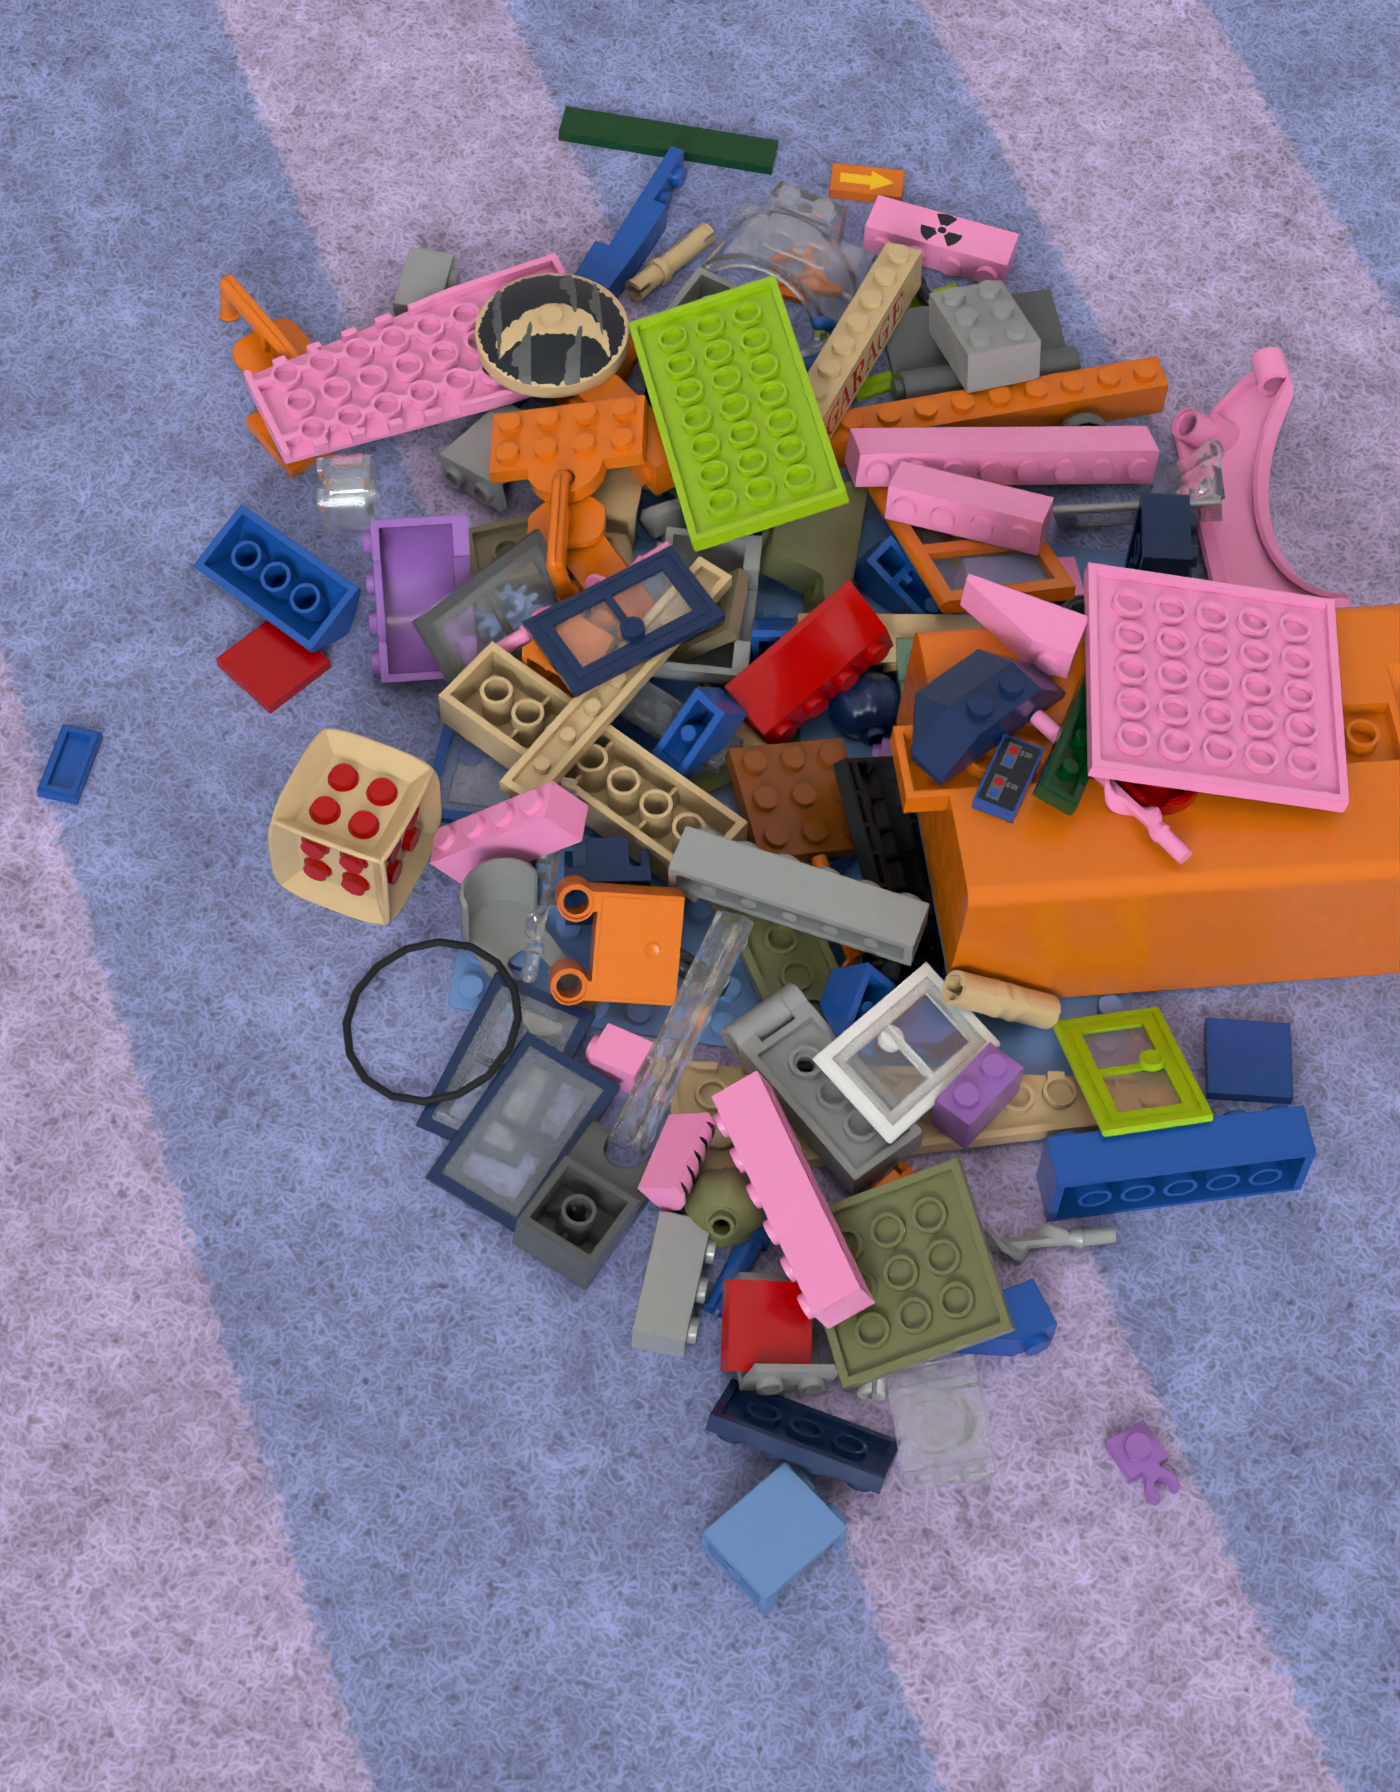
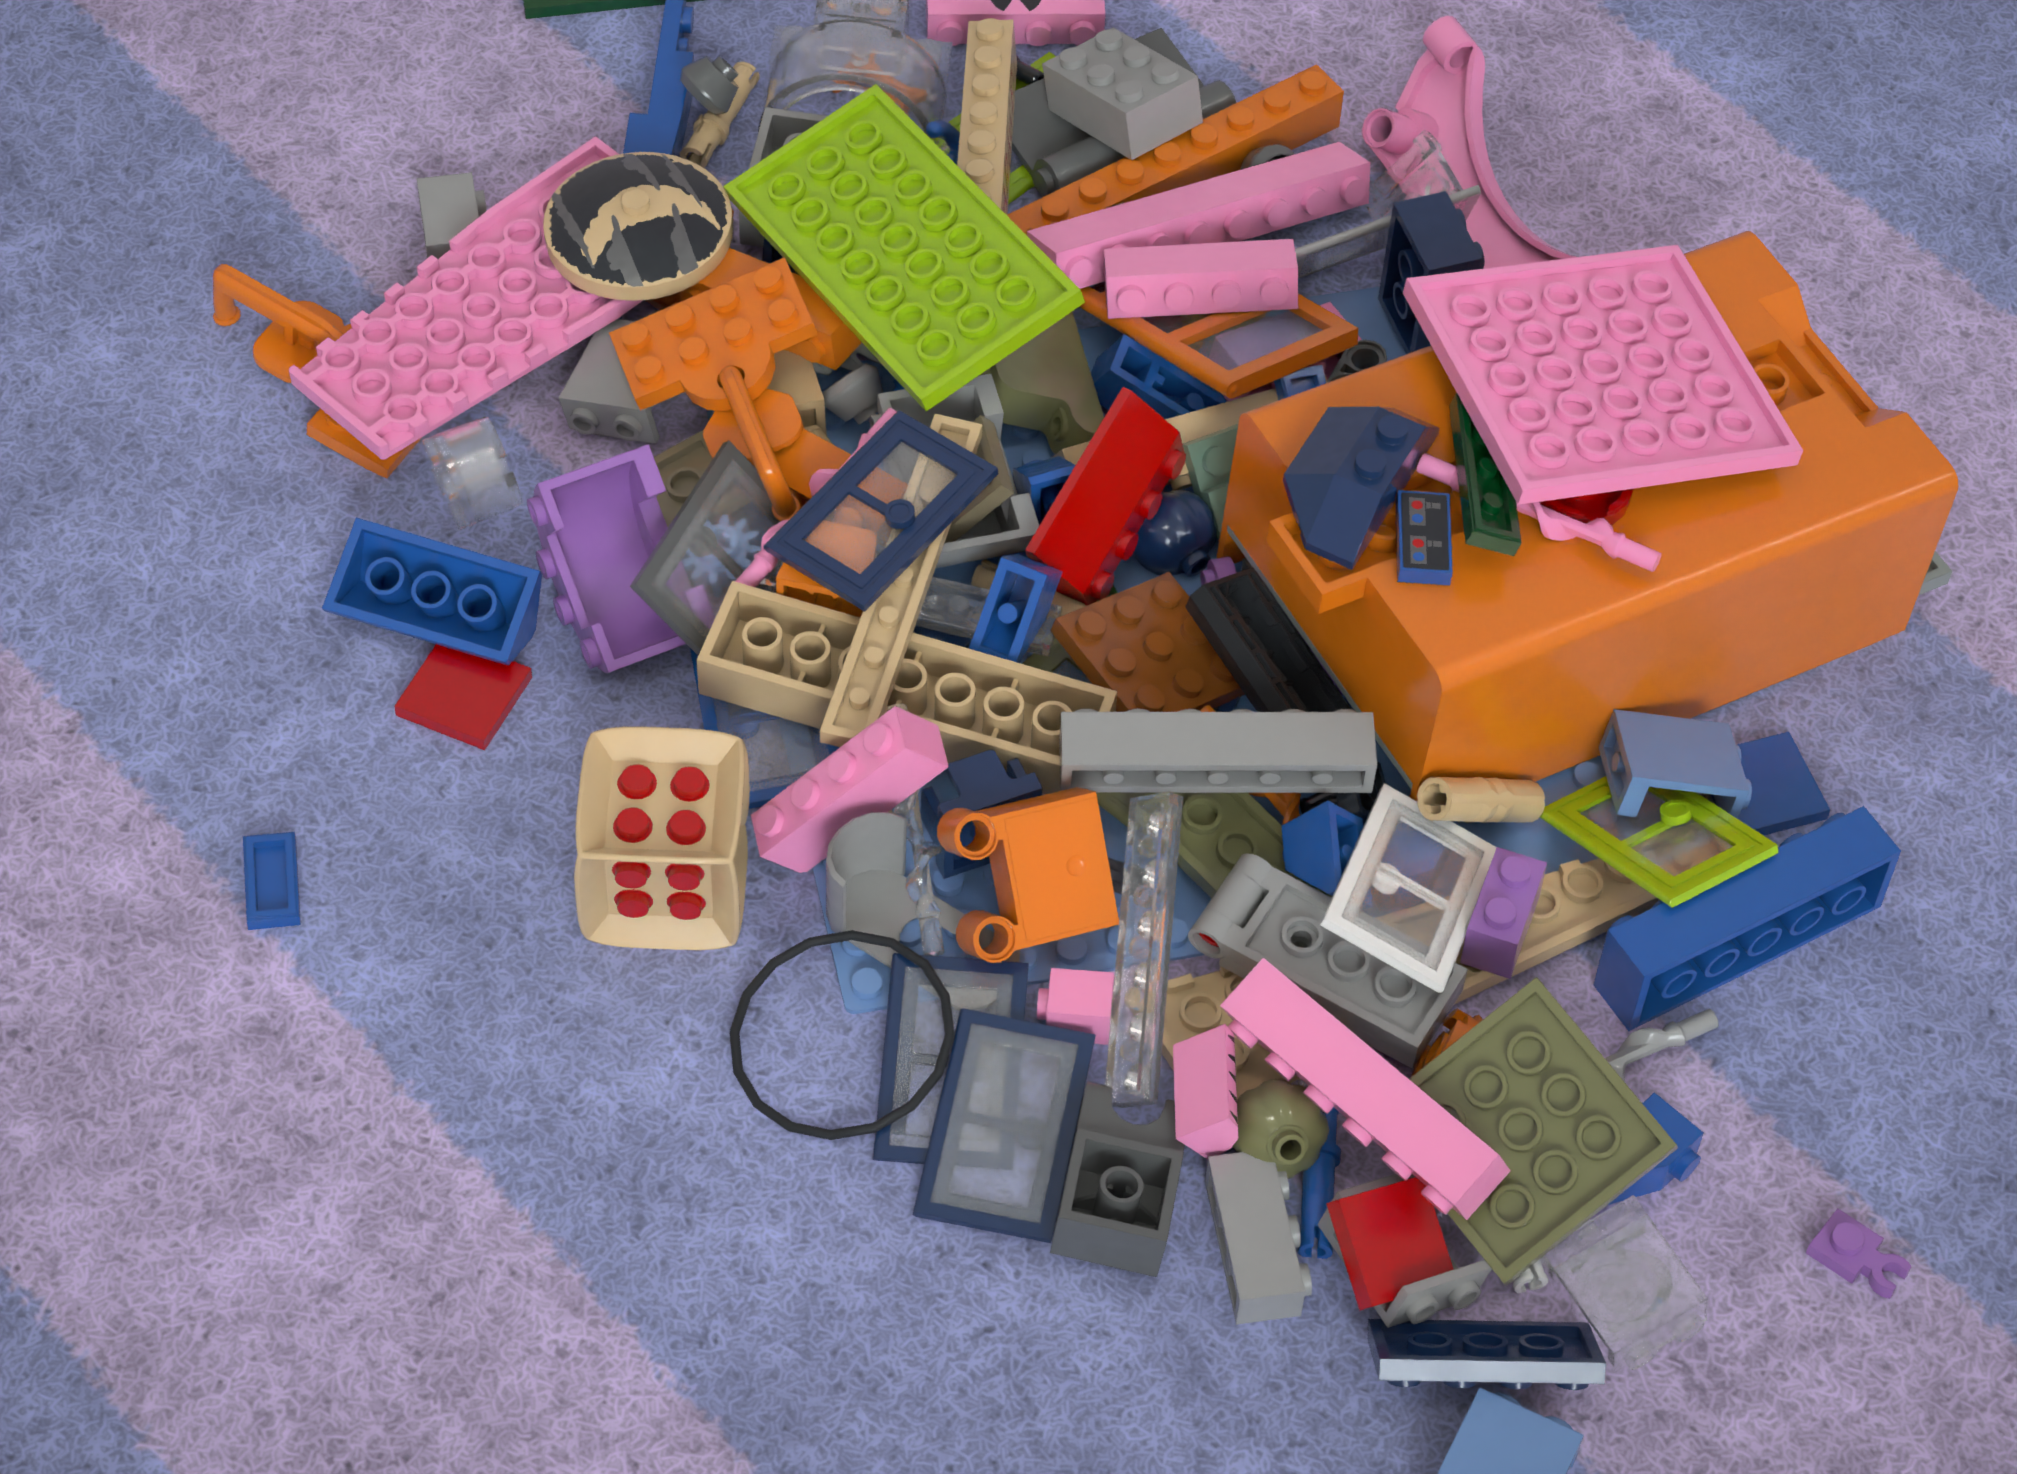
camera: 20 degrees left, 5 degrees down
(665, 235) = (711, 83): none -> dark grey cone
(1027, 625) = (1365, 366): bright pink slope -> none
(1173, 1016) = (1673, 755): none -> medium blue panel

